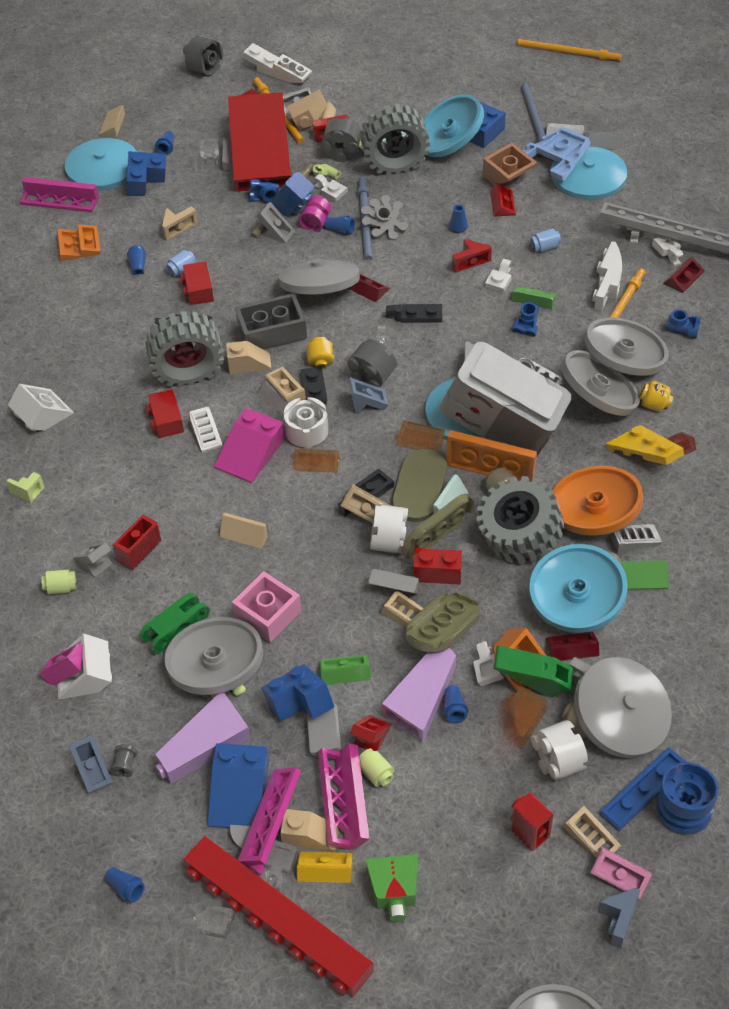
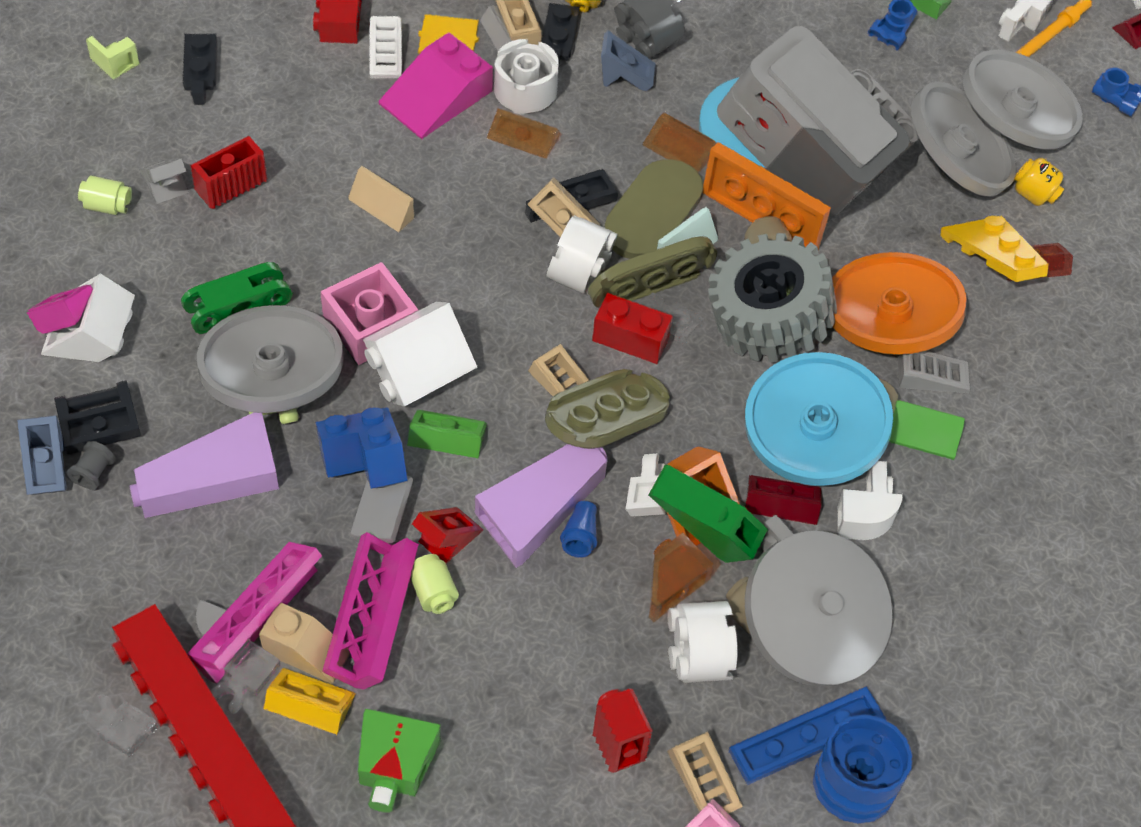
camera: 10 degrees right, 5 degrees up
(86, 476) = (199, 65): none -> black hinge
(119, 732) = (100, 424): none -> black plate
(125, 884) = (25, 638): blue cone -> none
(235, 406) = (437, 26): none -> yellow piece
(237, 784) = (231, 545): blue slope -> none
(310, 623) = (419, 354): none -> white brick
(394, 581) = (562, 331): light grey slope -> none
(631, 636) = (869, 512): none -> white brick

